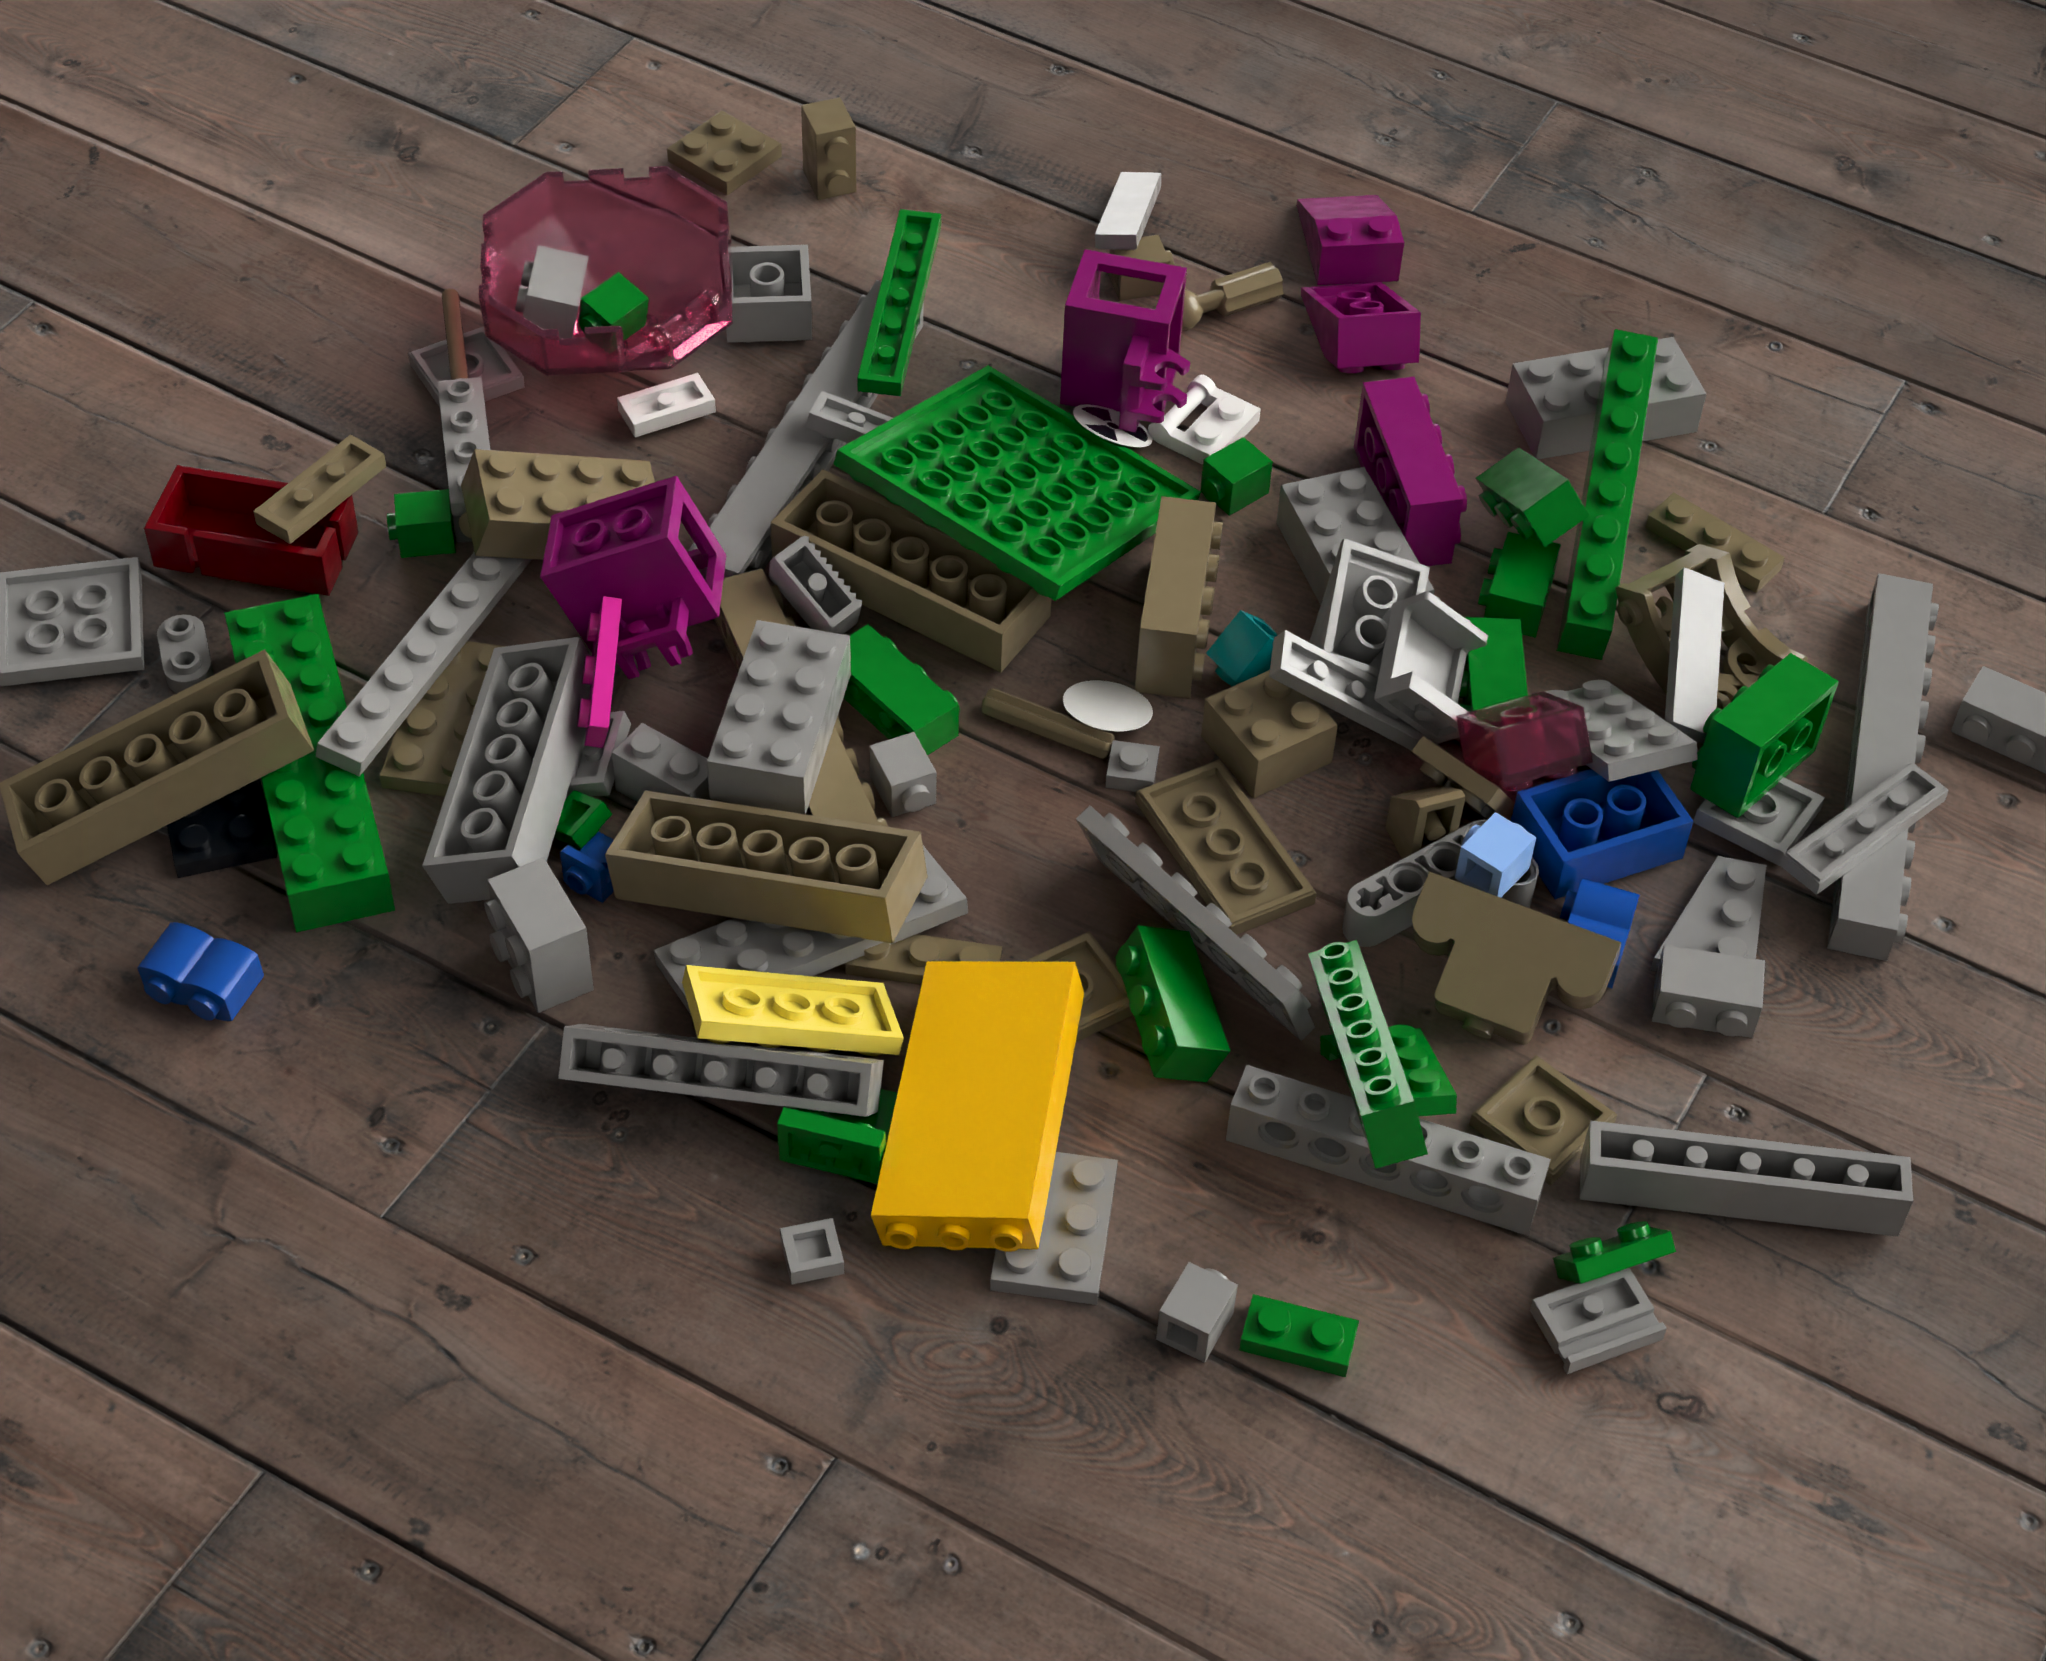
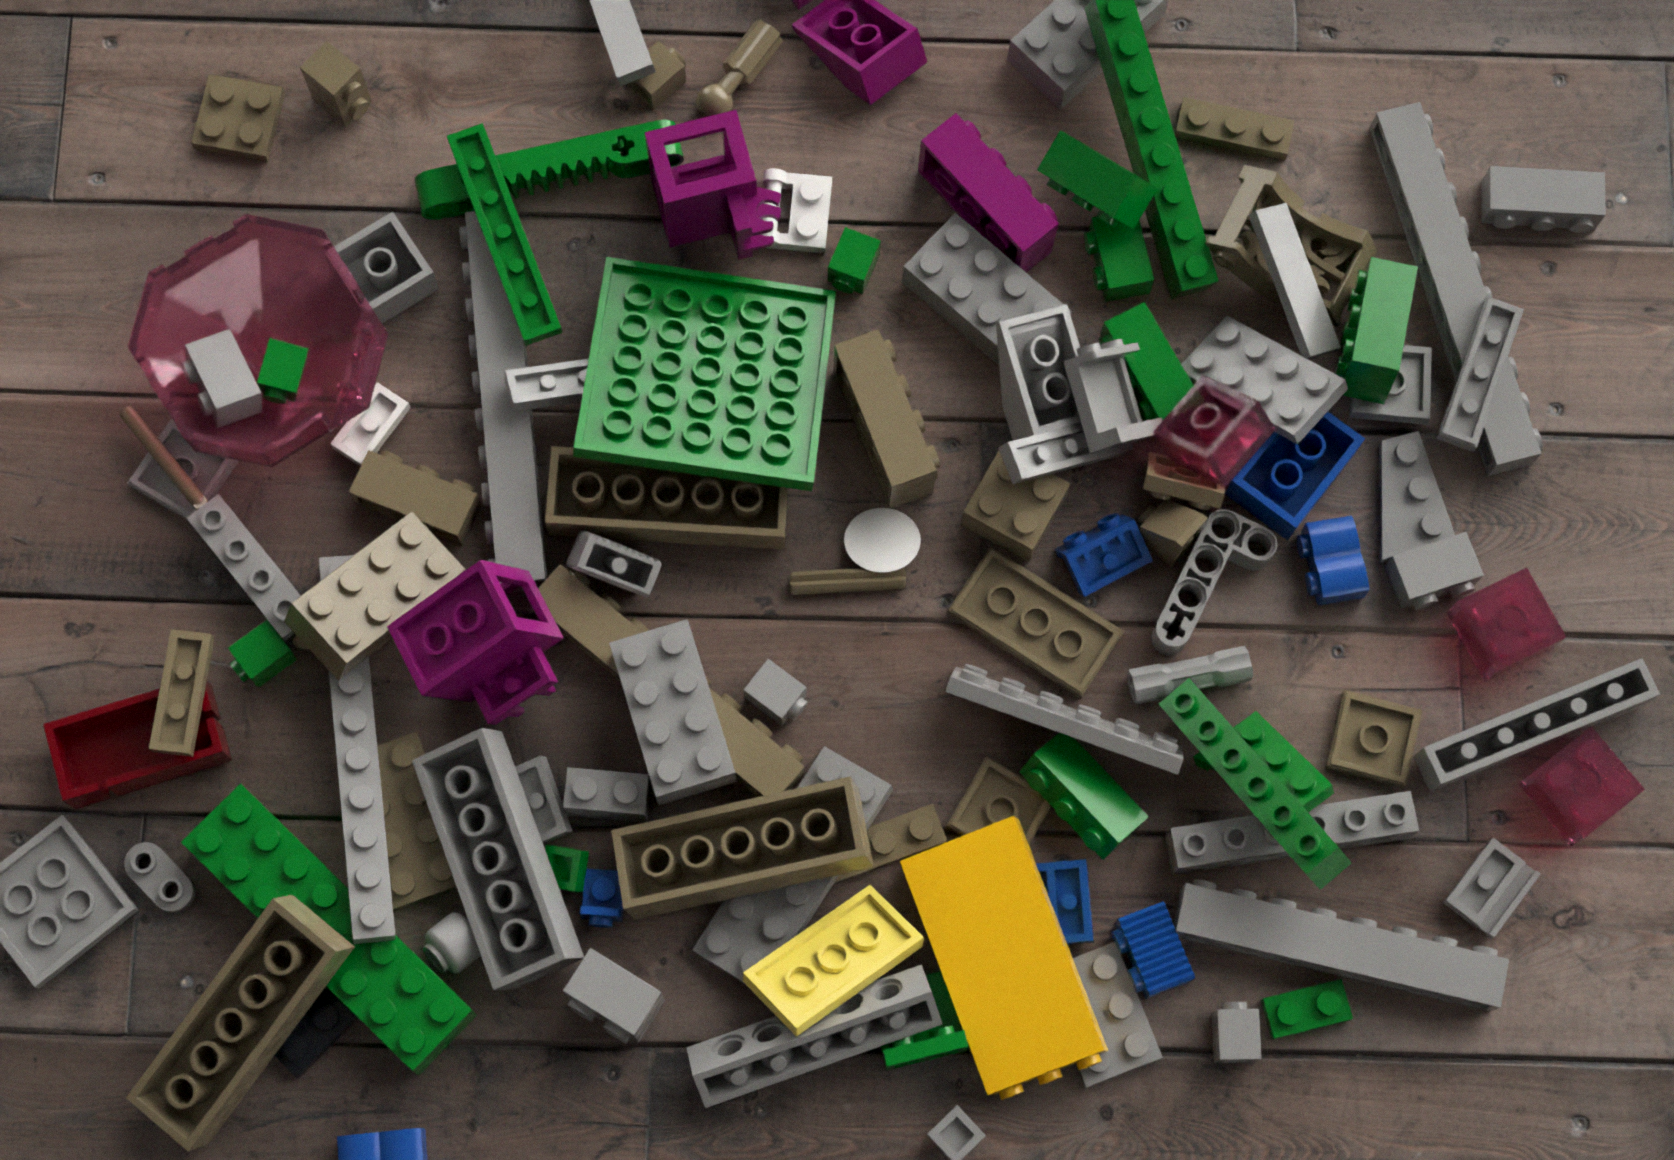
camera: 30 degrees left, 25 degrees up
(410, 825) = (451, 944): none -> light grey head
(599, 672) = (514, 746): dark pink plate -> none
(654, 441) = (398, 489): none -> dark tan brick
(898, 693) = (723, 618): green brick -> none
(973, 286) = (444, 194): none -> green gear
(1093, 1095) = (1070, 896): none -> blue wing
(1105, 424) = (718, 260): white sticker -> none
(1131, 766) = (930, 585): light grey plate -> none
(1154, 1186) = (1153, 951): none -> blue brick
(1243, 649) = (962, 438): teal brick -> none
(1339, 815) = (1104, 553): none -> blue bracket
(1380, 1287) = (1340, 946): none -> light grey brick
(1400, 969) = (1218, 669): none -> light grey axle
(1495, 855) = (1247, 550): light blue brick -> none
(1506, 959) = (1294, 631): dark tan brick -> none
(1597, 1258) = (1478, 832): green plate -> none
(1765, 1075) = (1506, 624): none -> clear pink brick
(1767, 1267) = (1581, 786): none -> clear pink brick

